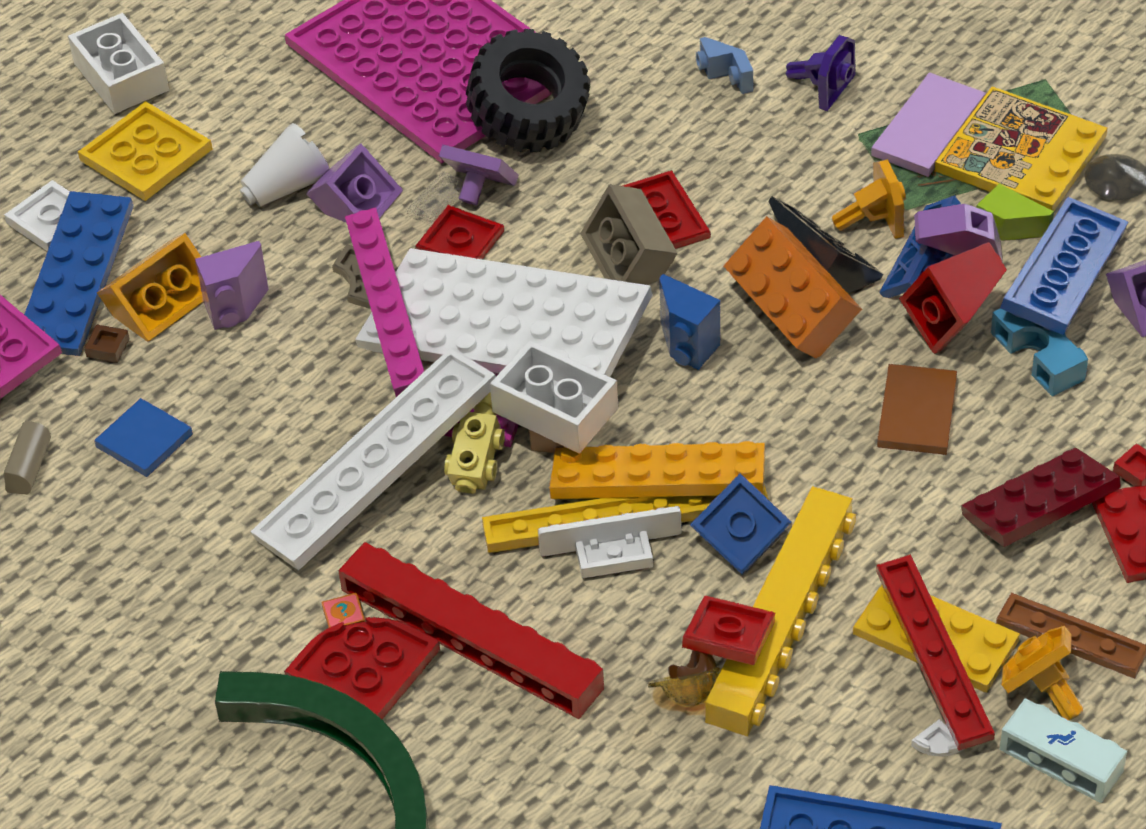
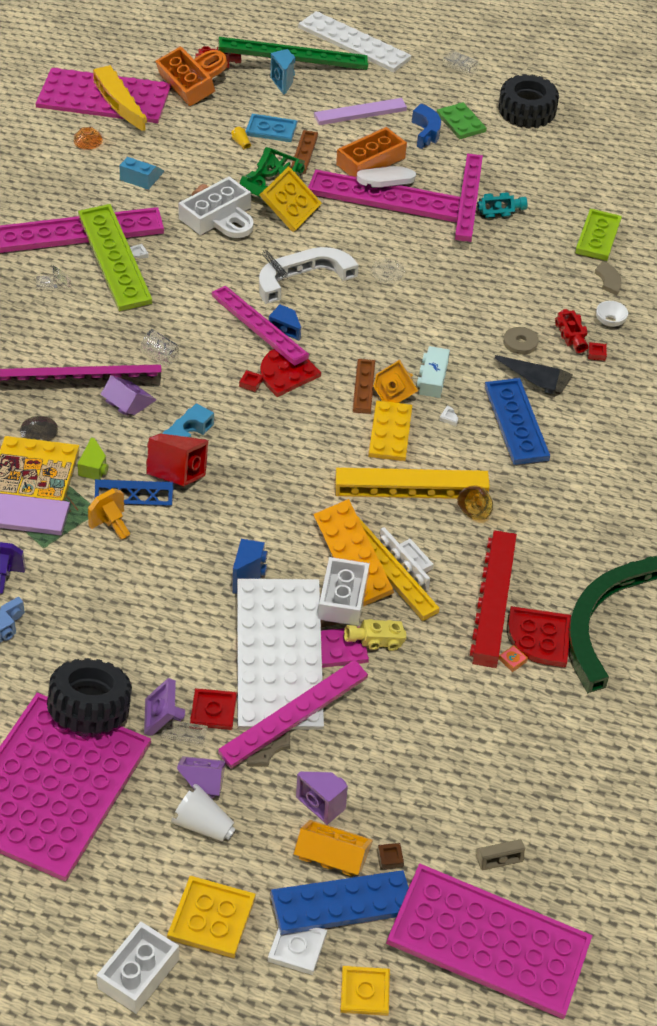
camera: 120 degrees left, 0 degrees up
(143, 437) = (448, 805): blue tile -> none
(374, 458) = (417, 667): white plate -> none
(628, 237) = (190, 616): dark tan slope -> none
(673, 209) = (149, 618): red tile -> none
(728, 630) = (450, 483): red tile -> none
(741, 524) = (373, 507): blue tile -> none
(792, 288) = (200, 527): orange brick -> none
(845, 267) = (163, 524): black wedge -> none
(917, 409) = (250, 470): dark orange tile -> none
(935, 653) = (407, 421): red tile -> none
(957, 229) = (129, 465): medium lavender slope -> none
(1040, 496) = (290, 408): dark red plate -> none
(1064, 266) = (130, 424): plate -> none

